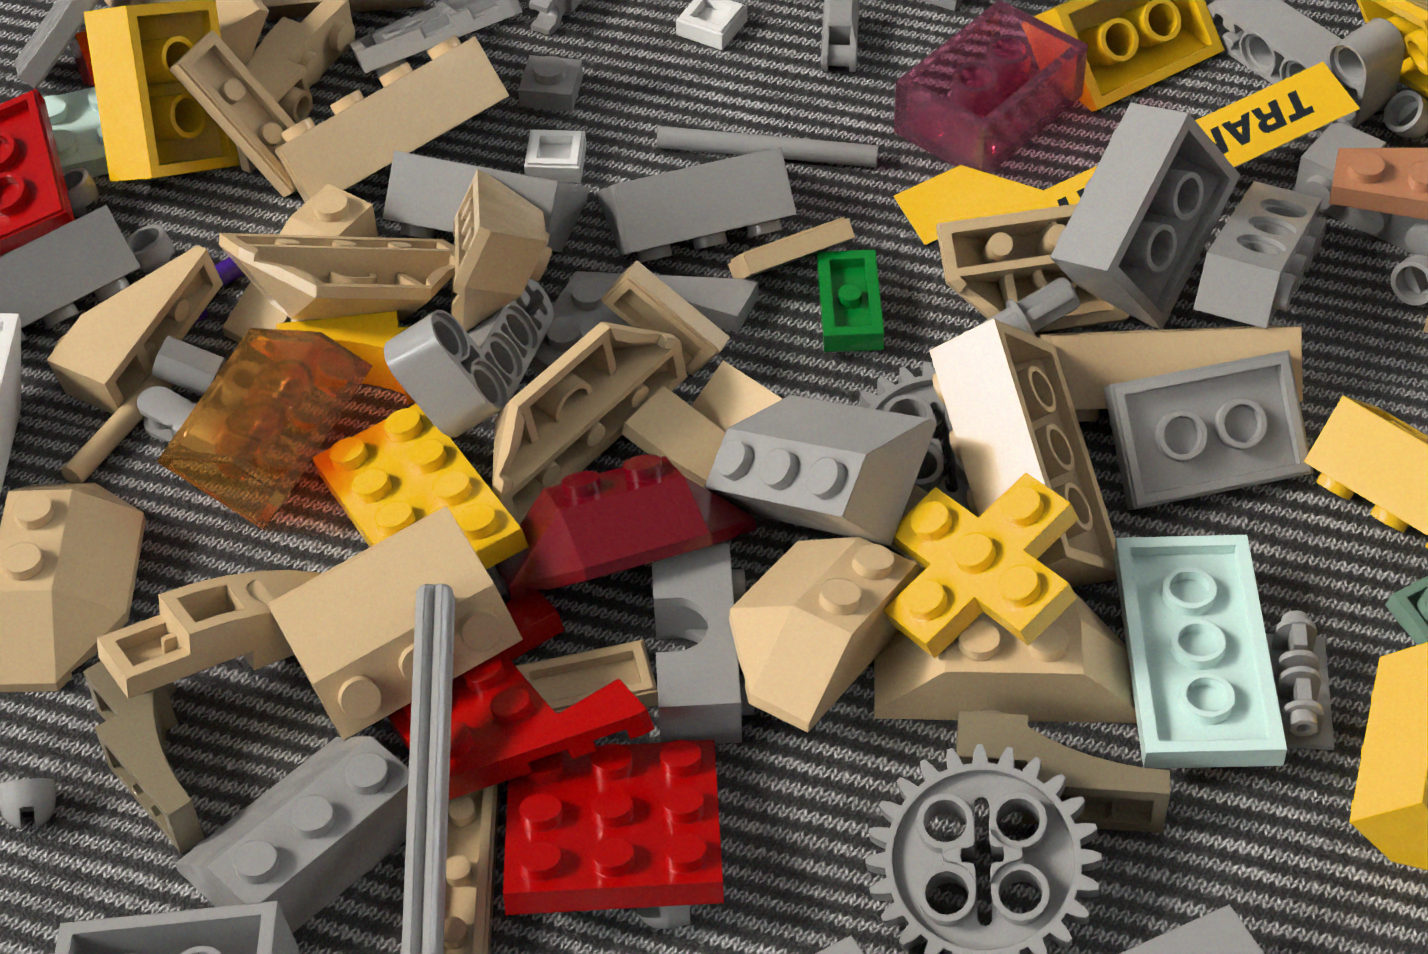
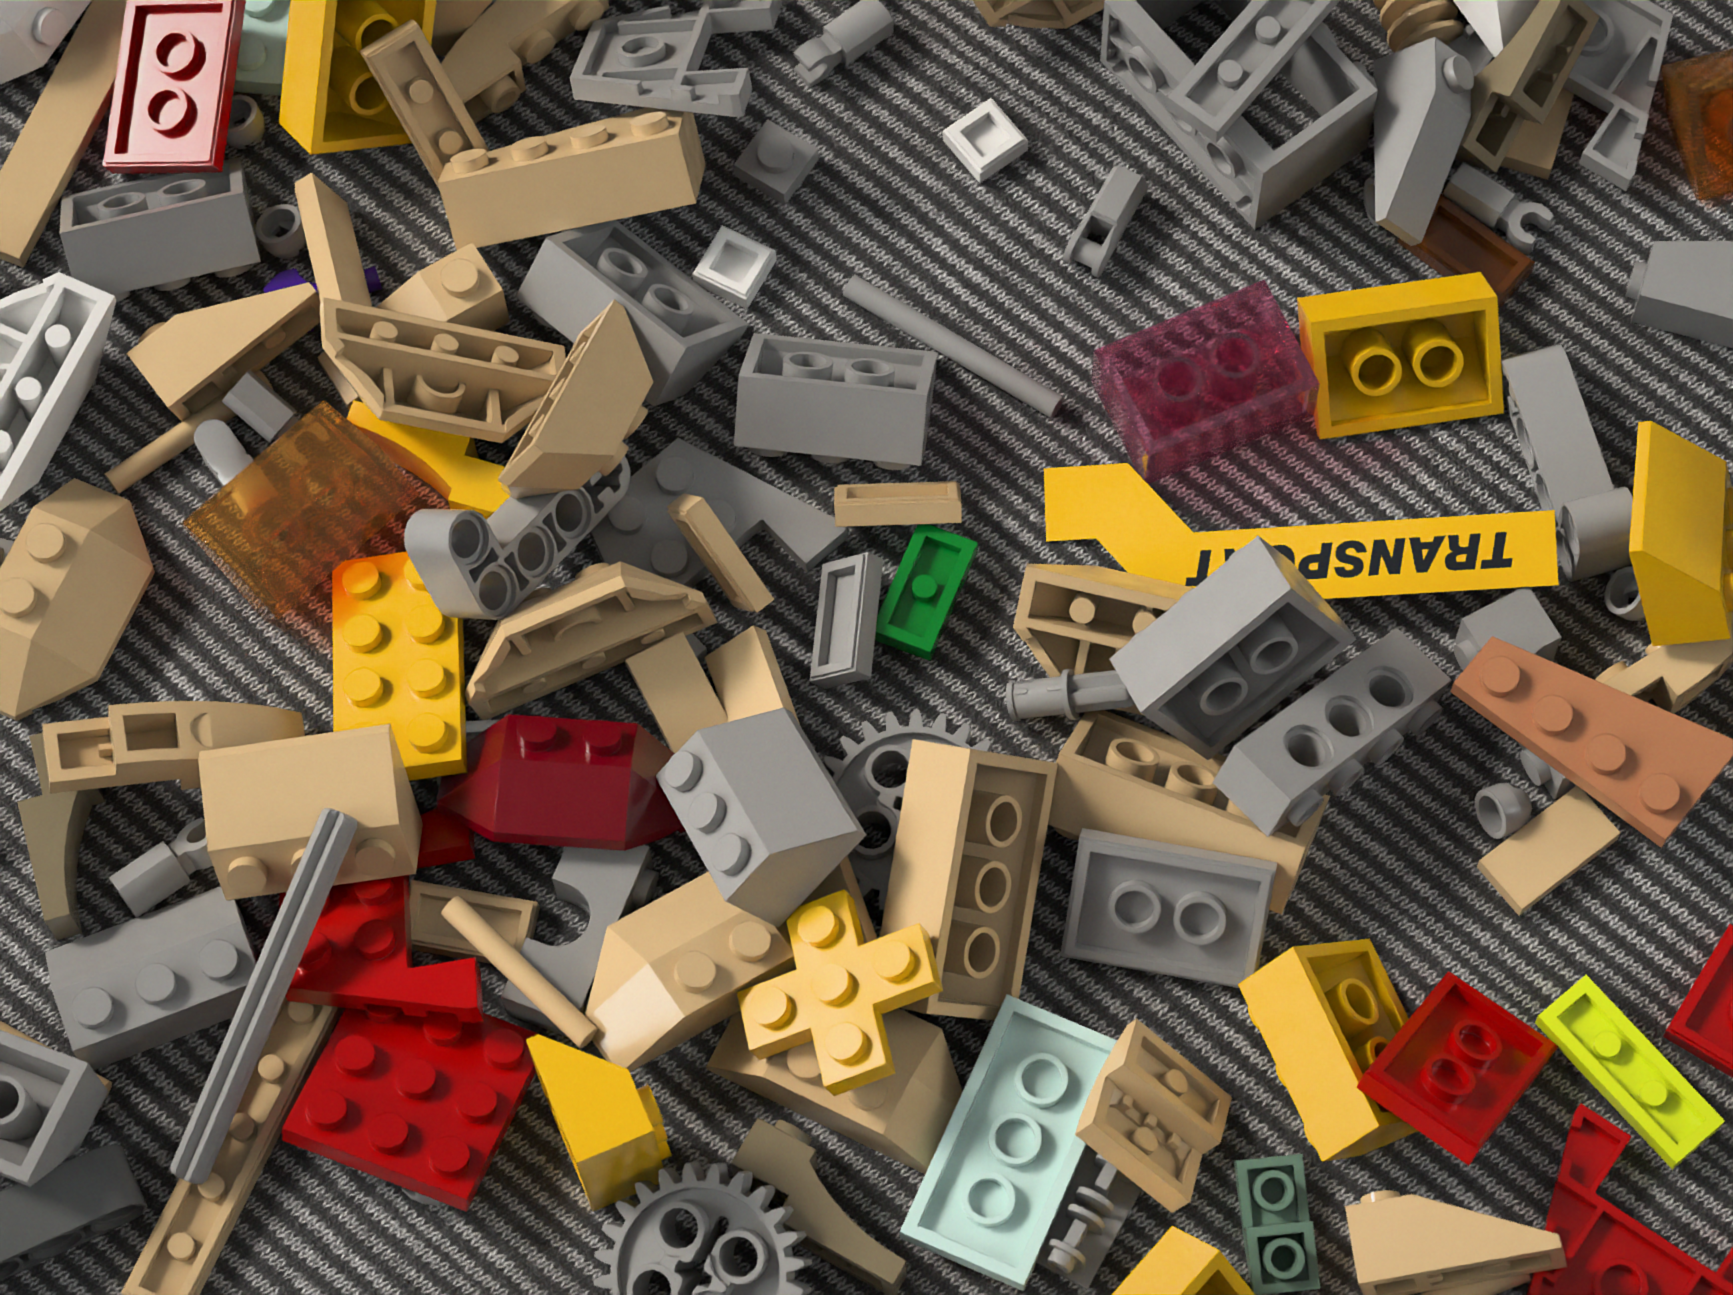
camera: 25 degrees right, 20 degrees up
(193, 230) = (331, 242): none -> tan tile
(267, 744) = (163, 869): none -> light grey bar
(667, 676) = (519, 971): none -> tan bar
(797, 340) = (846, 620): none -> light grey tile
(813, 752) = (603, 1120): none -> yellow slope
(1305, 579) = (1153, 1115): none -> tan slope

